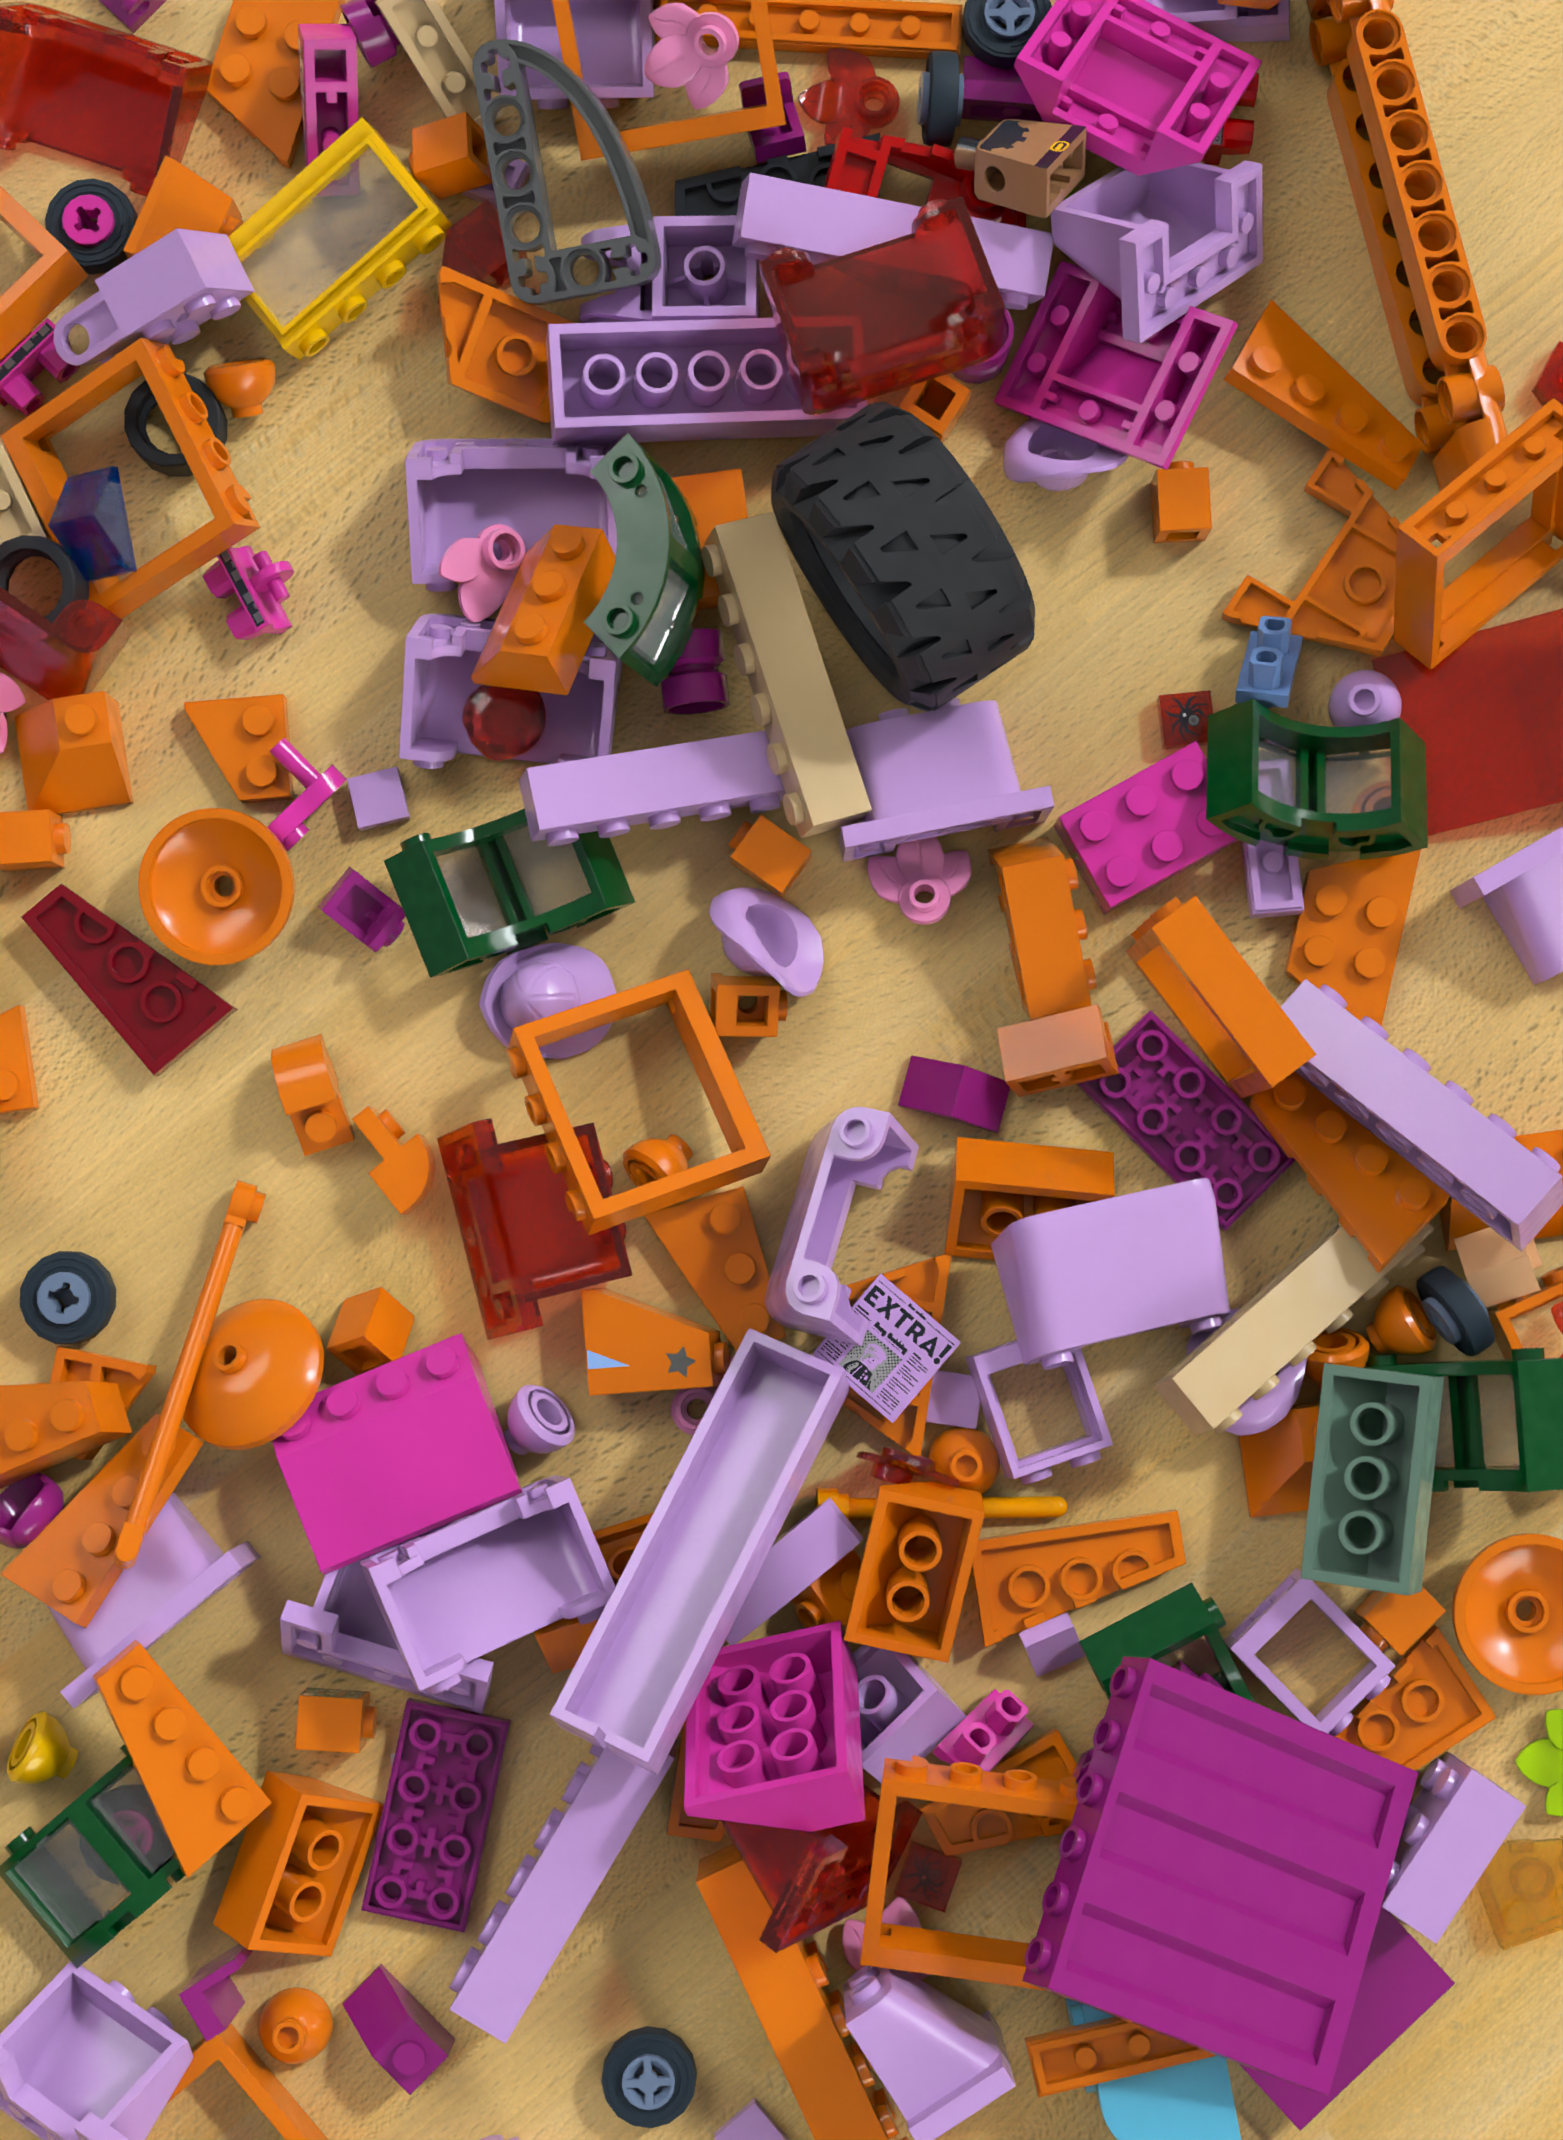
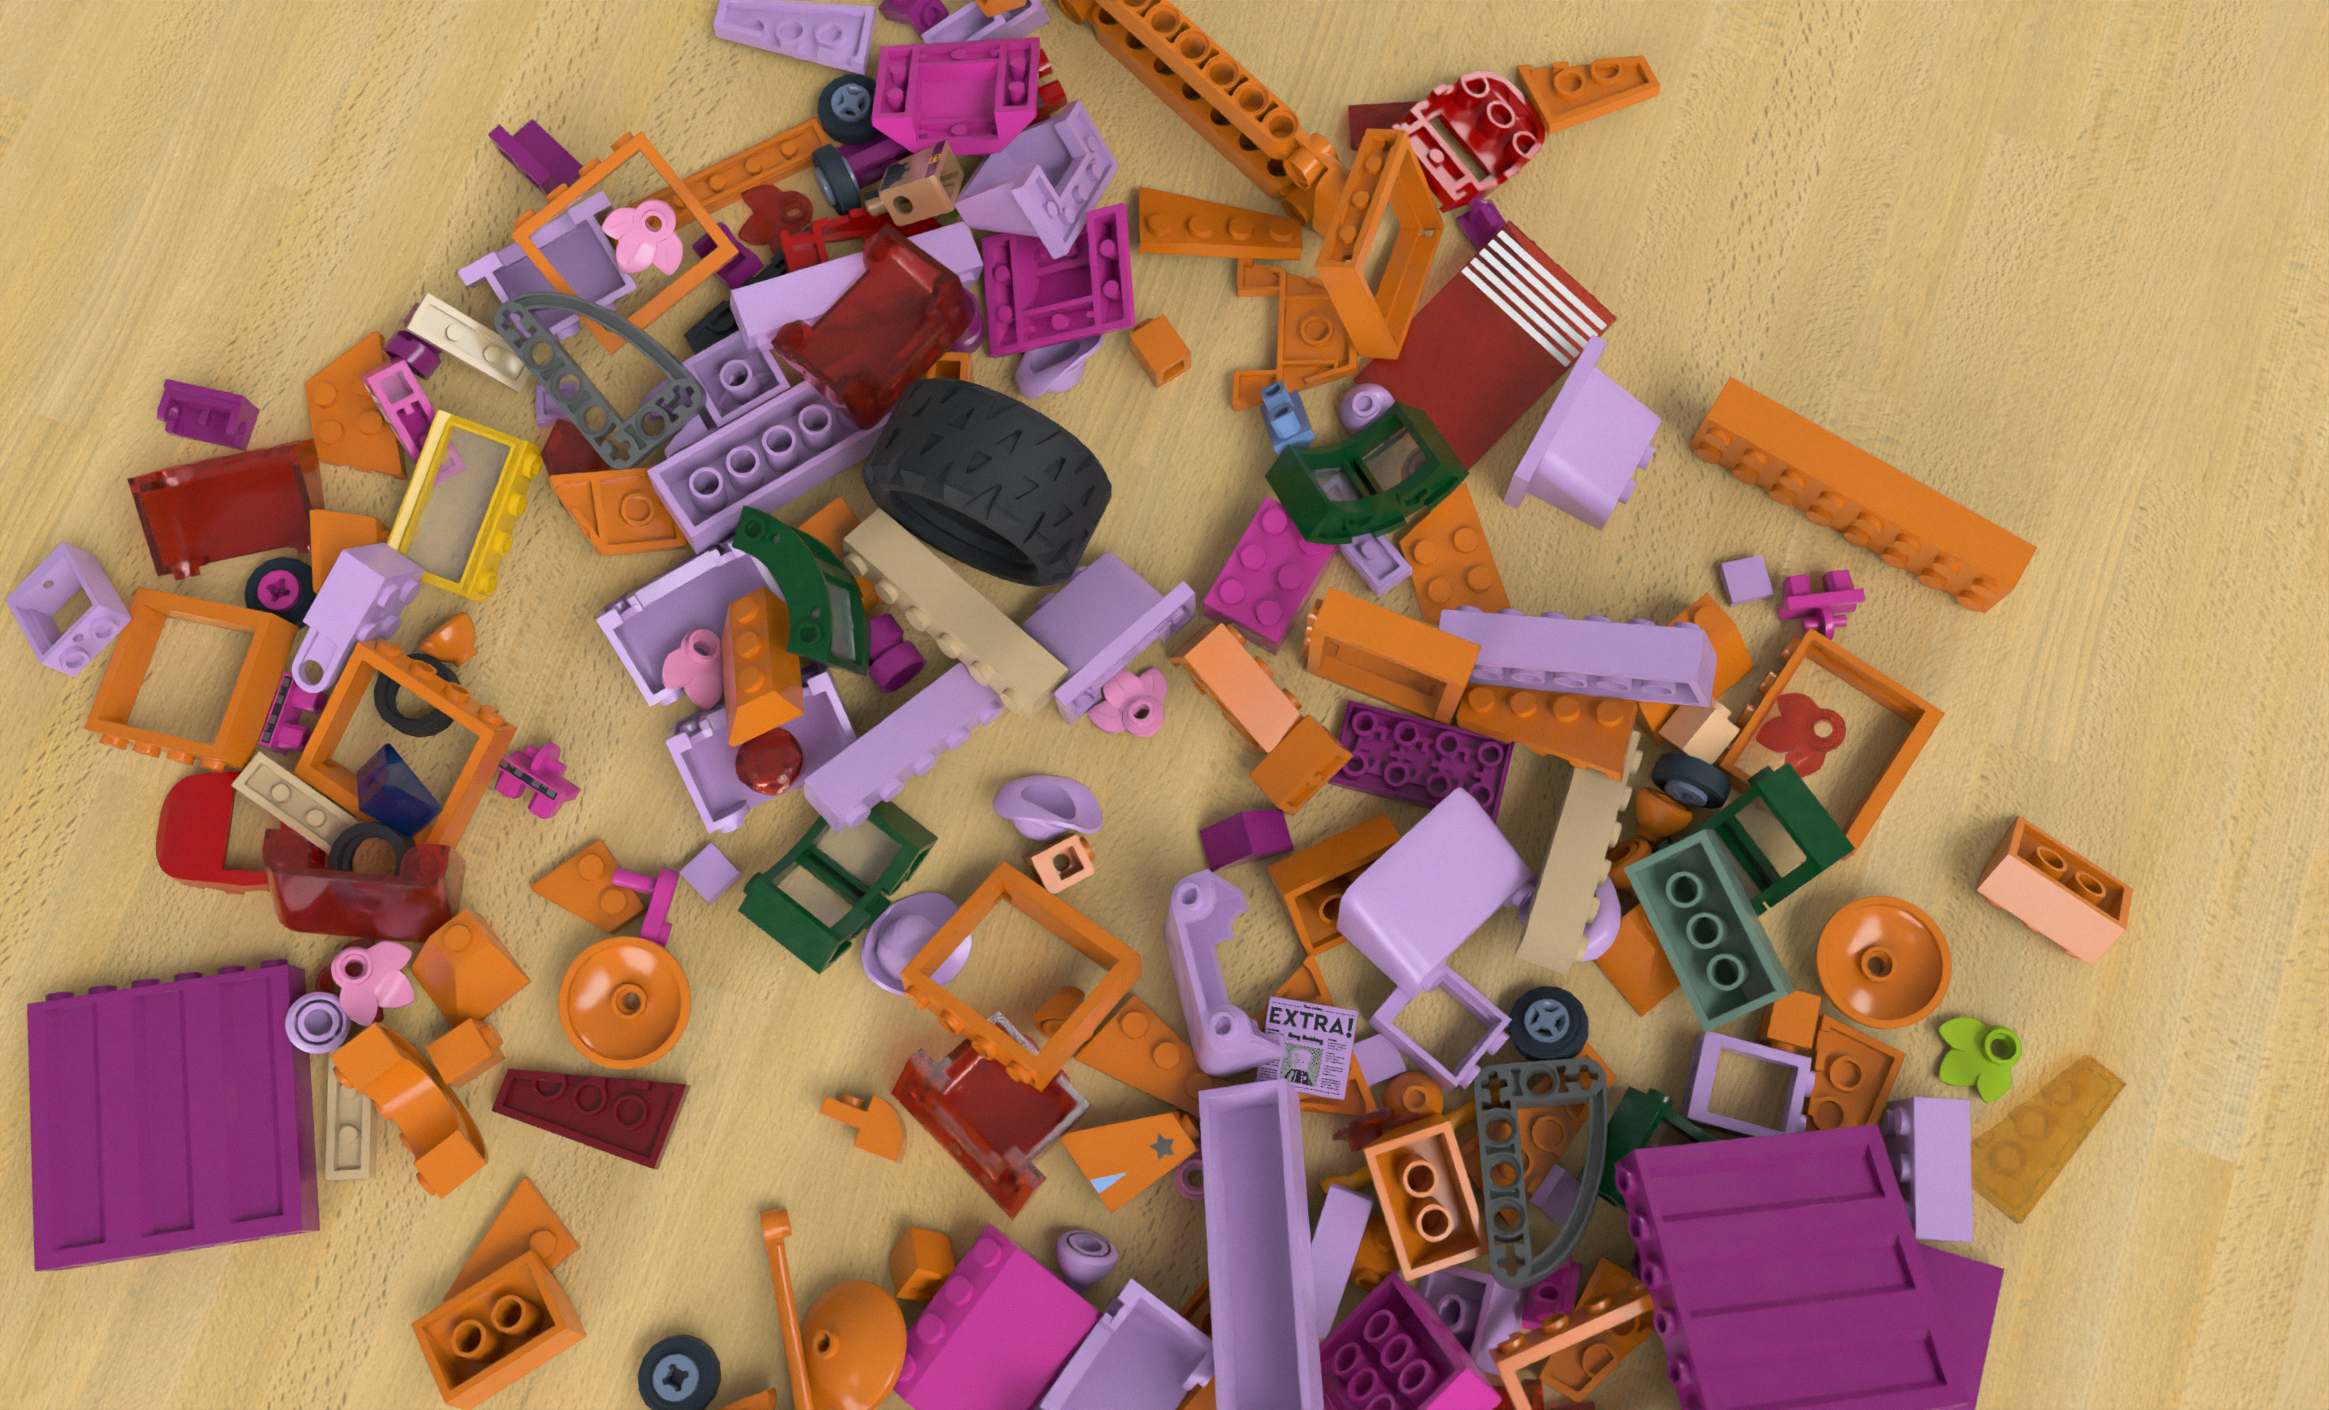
camera: 25 degrees left, 10 degrees down
(311, 1094) = (780, 1115): orange brick -> none
(364, 910) = (744, 958): magenta bracket -> none
(450, 156) = (516, 404): orange brick -> none
(769, 855) = (1015, 749): orange brick -> none
(1028, 1575) = (1509, 1152): none -> dark grey beam
(1151, 1452) = (1544, 1010): none -> black wheel
(1184, 718) = (1249, 490): clear red tile -> none

